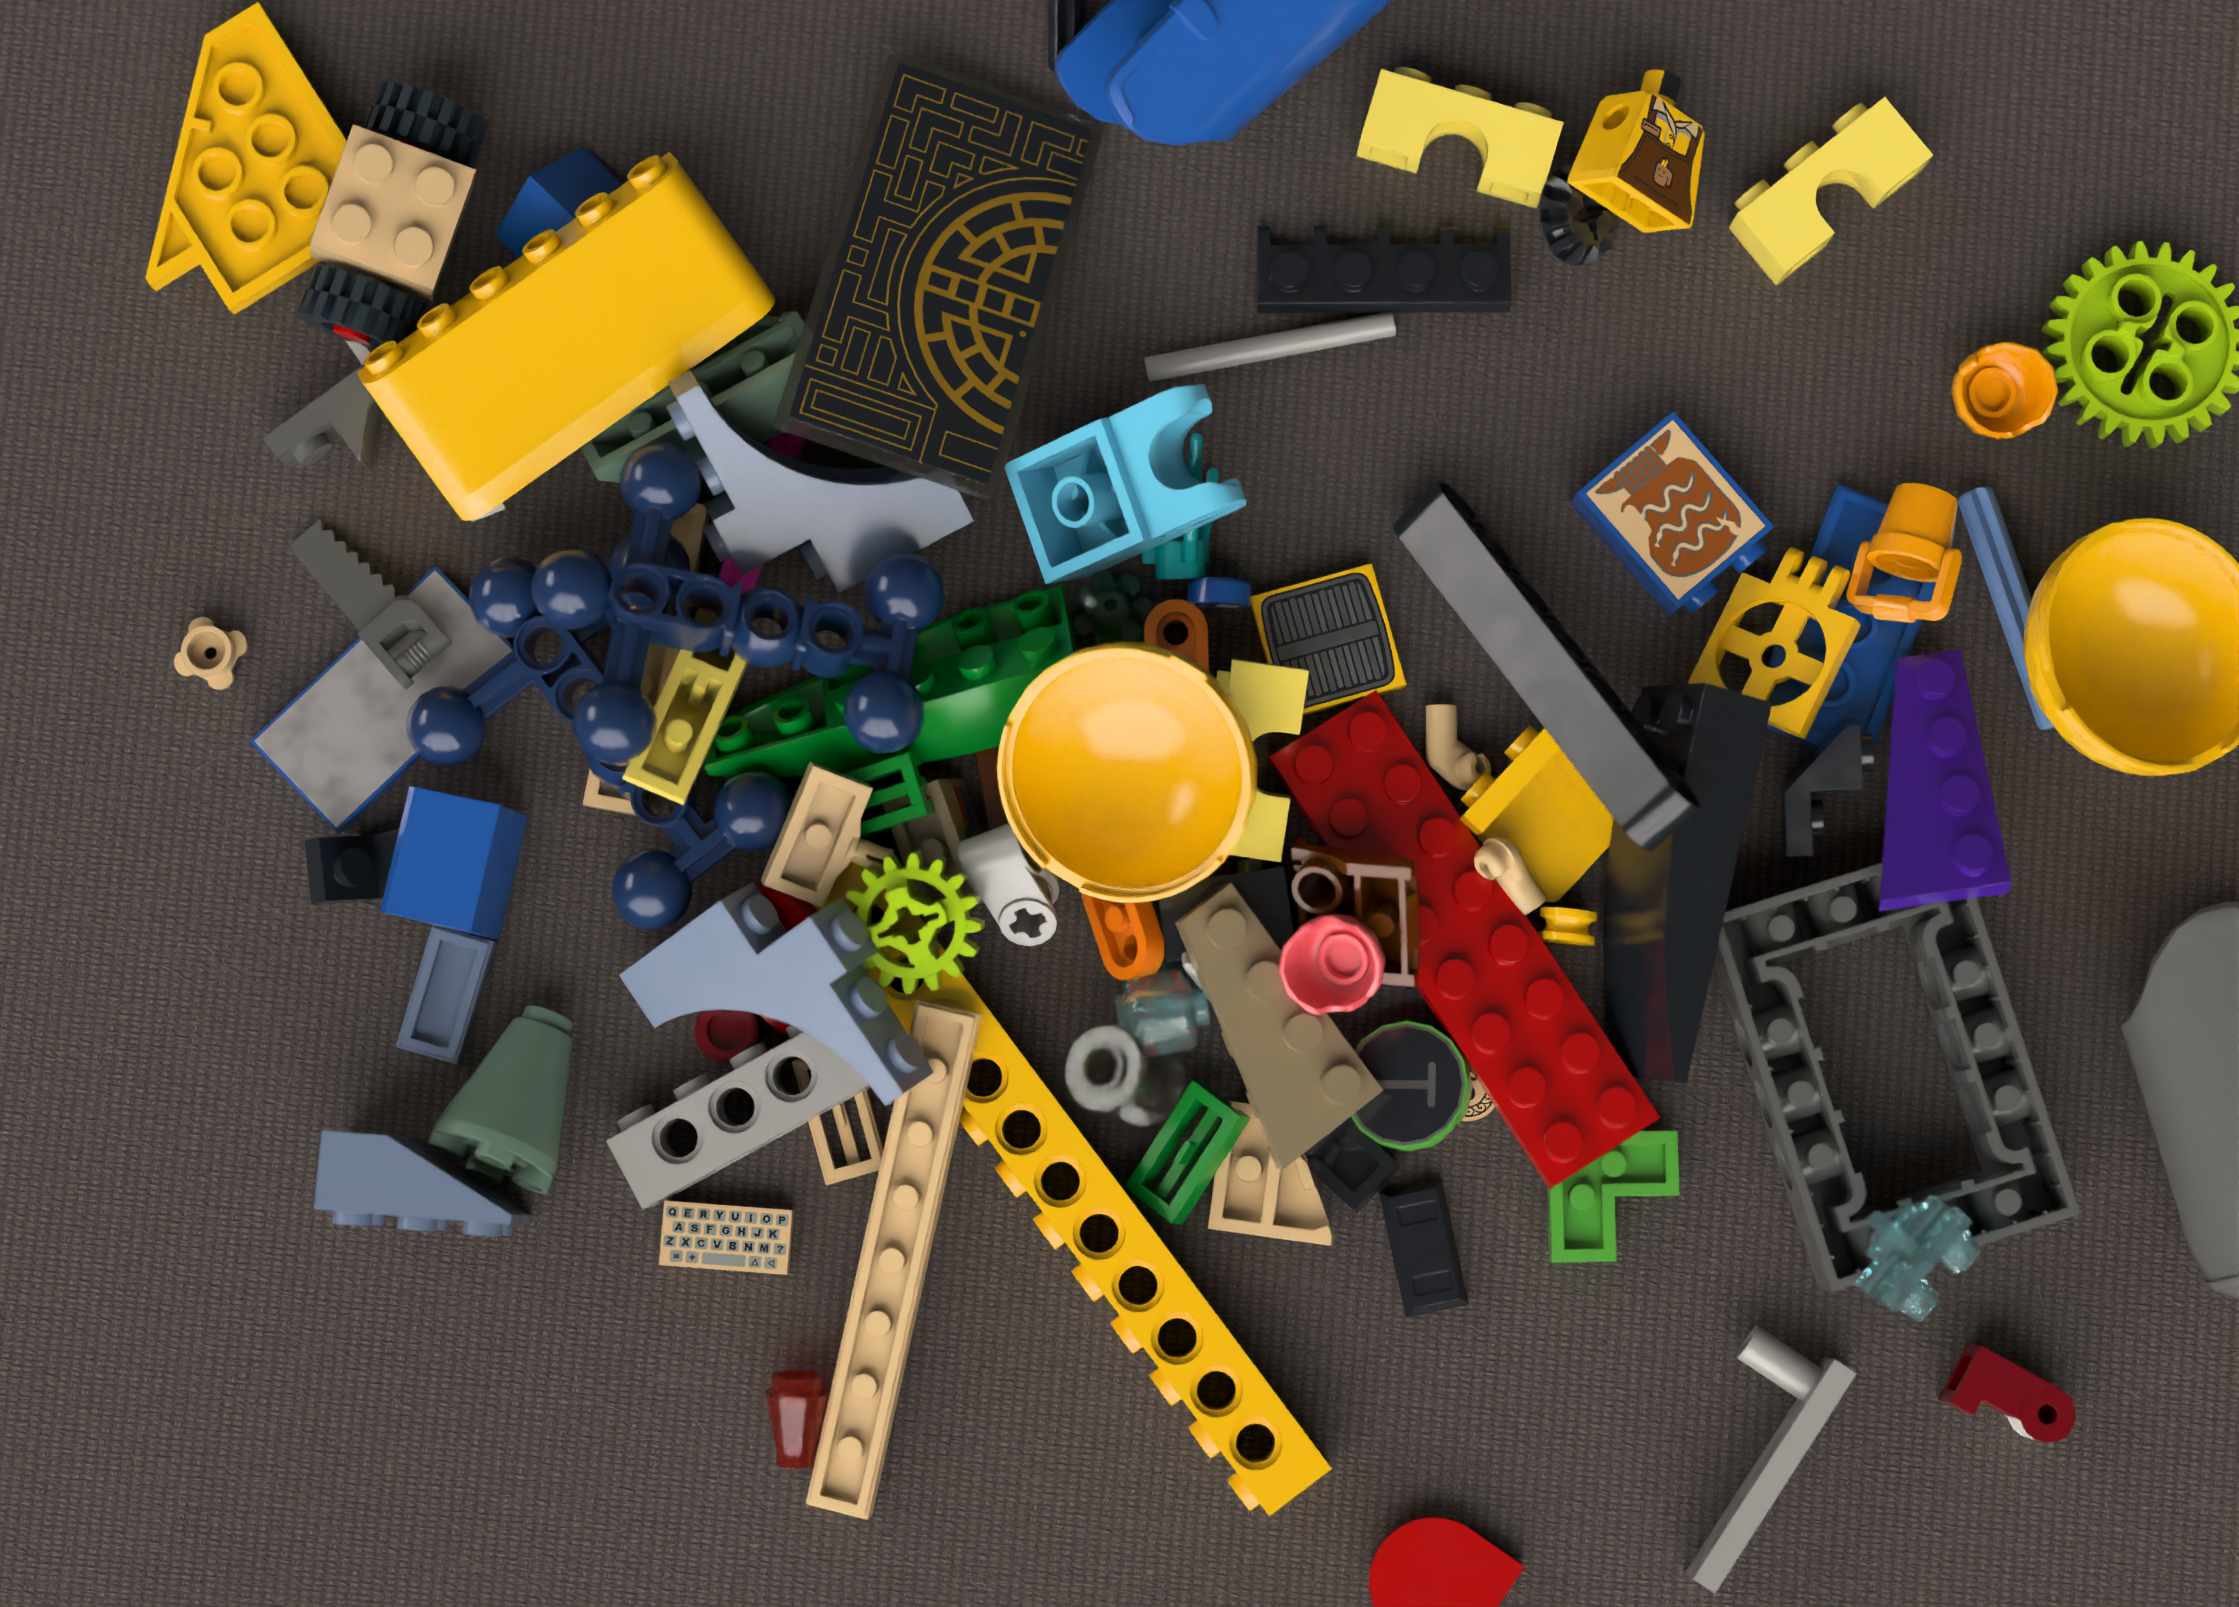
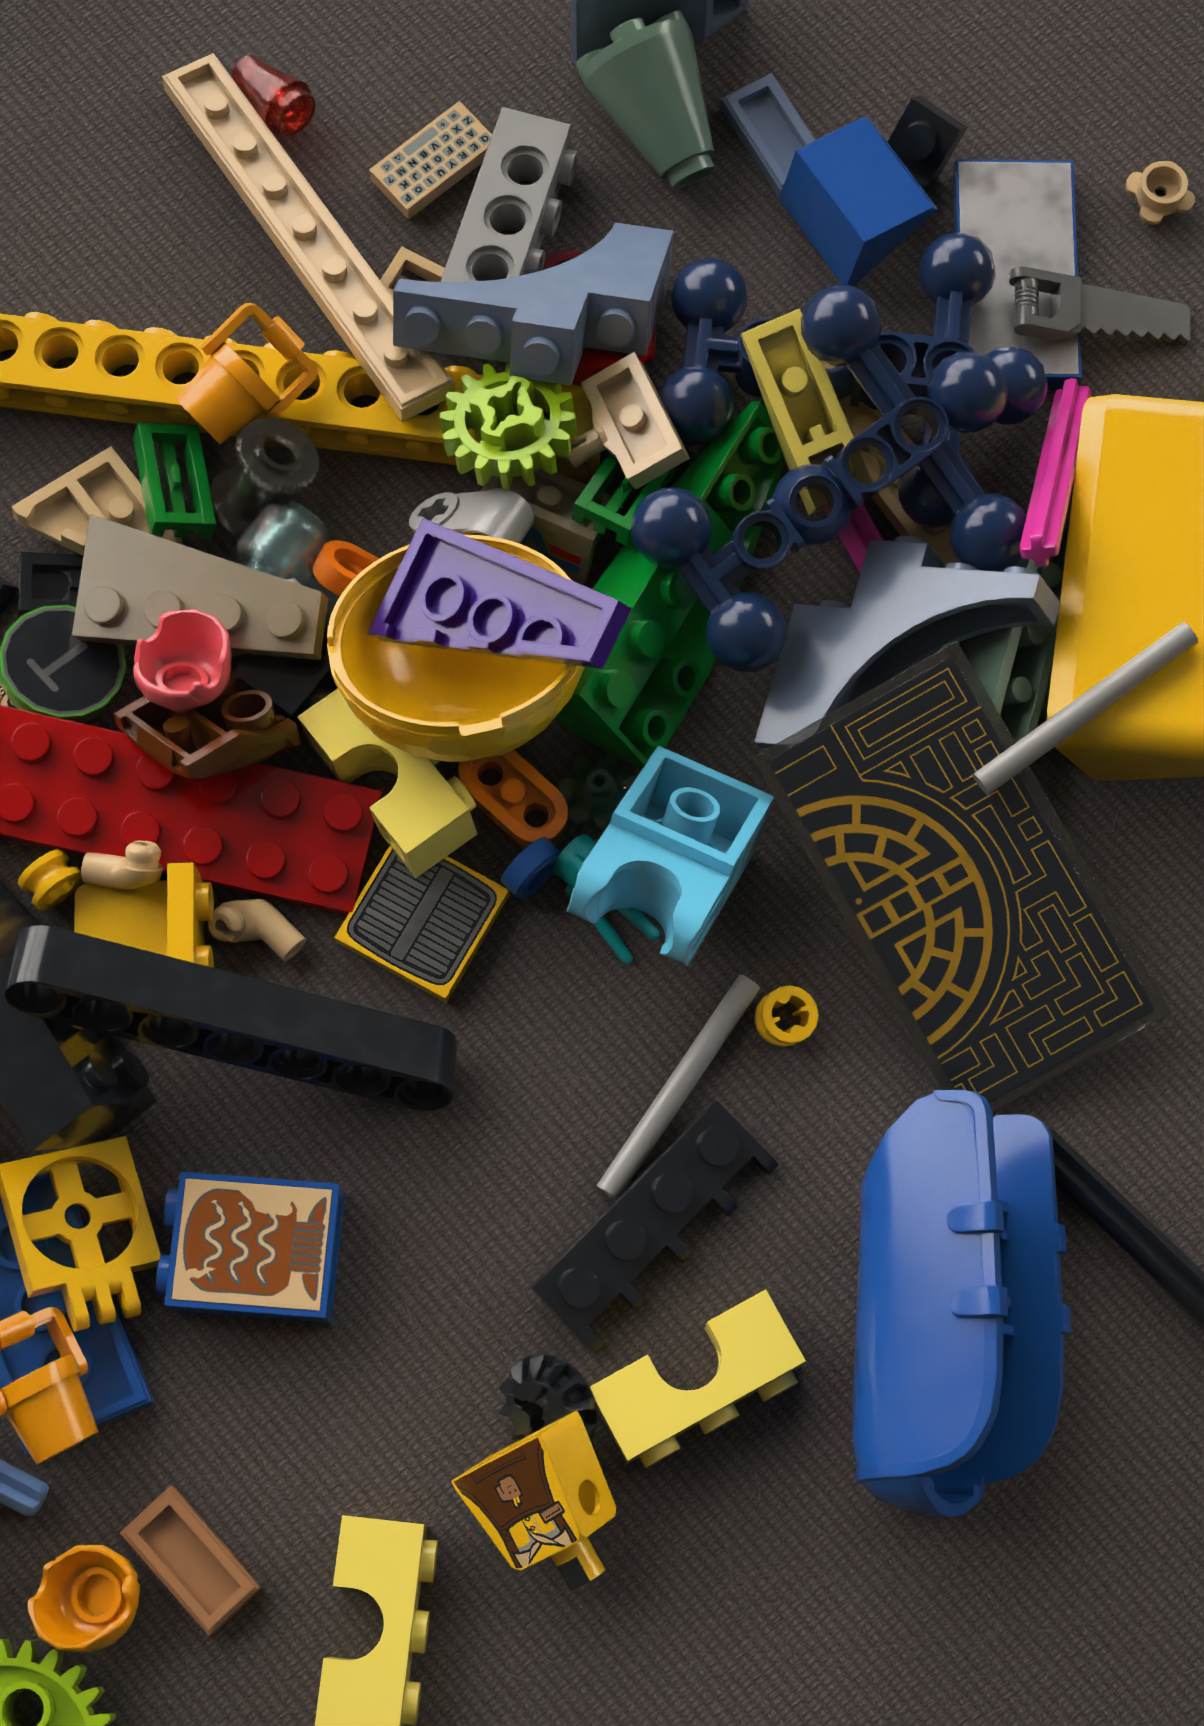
camera: 130 degrees right, 10 degrees down
(556, 488) = (1054, 475): none -> dark pink axle
(736, 287) = (1085, 708): none -> light grey bar
(1081, 784) = (492, 603): none -> wing
(1086, 1155) = (228, 390): none -> light orange piece
(1136, 334) = (766, 1024): none -> yellow bush
(1907, 356) = (191, 1560): none -> medium nougat tile

